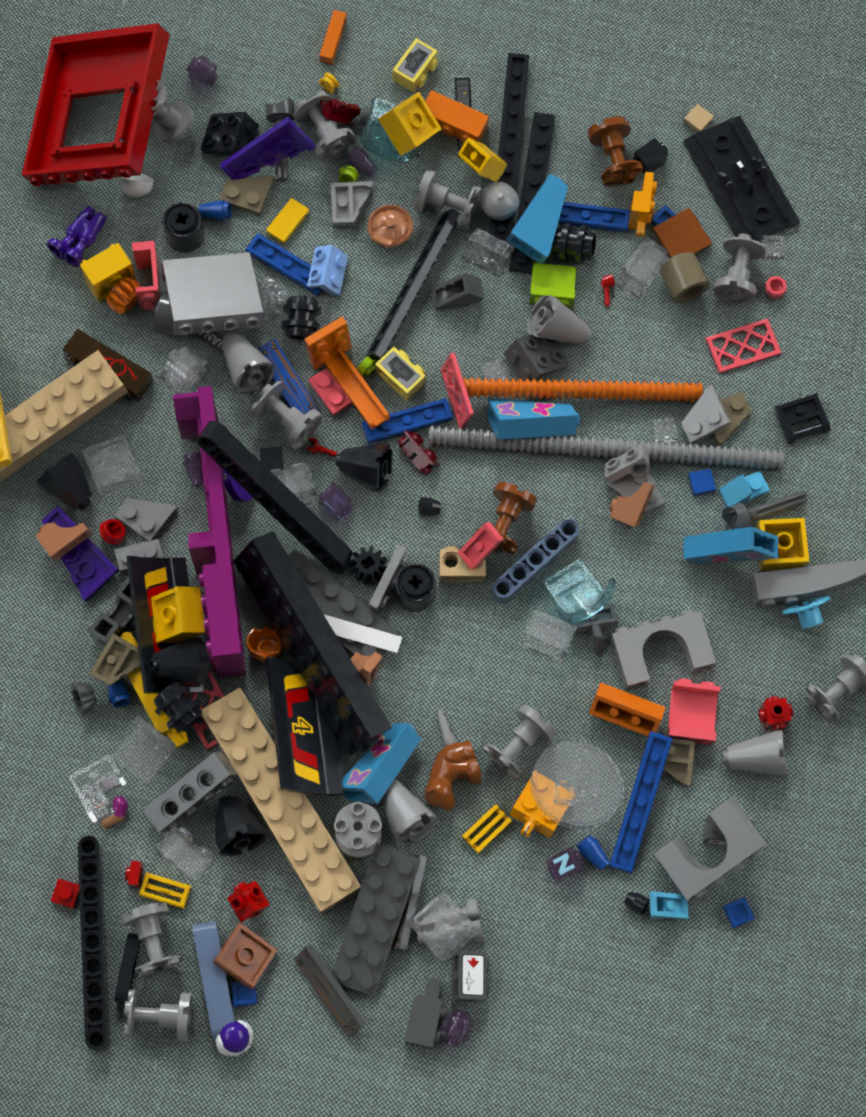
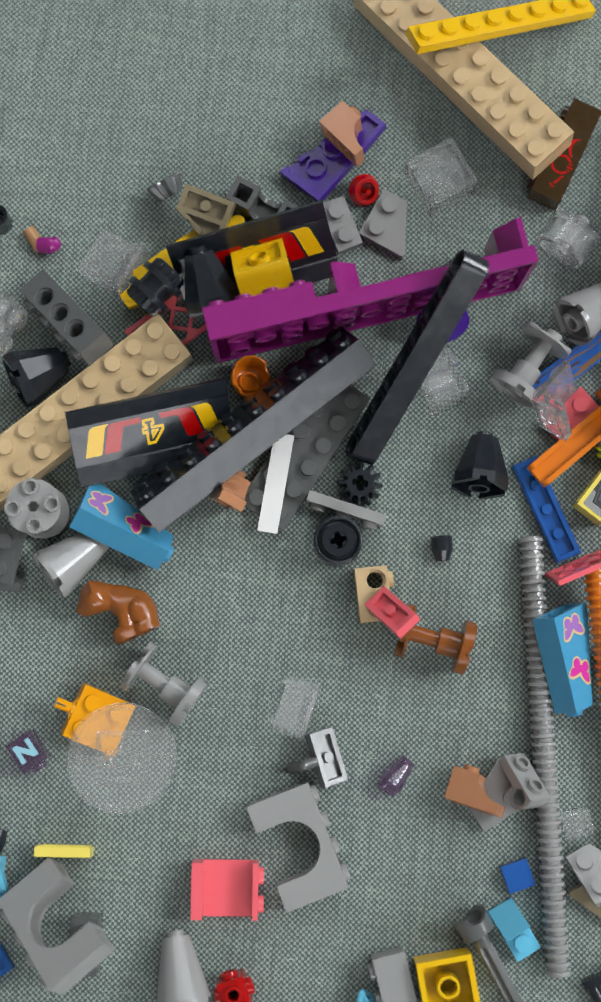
camera: 85 degrees right, 10 degrees up
(67, 483) = (413, 129): black cone -> none
(94, 783) = (64, 210): clear brick -> none
(119, 694) = (175, 225): blue cone -> none
(272, 457) = (471, 357): black panel -> none
(317, 448) = (496, 412): red hand -> none
(328, 402) = (550, 401): none -> clear bracket
(336, 502) = (431, 438): clear purple brick -> none
(425, 457) = (517, 519): dark red hinge -> none
(447, 736) = (166, 601): light grey piece -> none
(501, 814) = (47, 642): yellow tile -> none
(540, 551) = (402, 687): sand blue beam -> none
(577, 592) = (354, 735): clear light blue piece -> none
(593, 852) = (48, 783): blue cone -> none
(614, 566) = (395, 776): none -> clear purple cone
(626, 710) = (217, 809): orange brick -> none
(640, 802) = (110, 835): blue tile -> none
(650, 843) = (60, 850): none -> light yellow tile
(680, 760) = (170, 868): dark tan wing -> none
(730, 546) = (432, 921): dark azure slope -> none

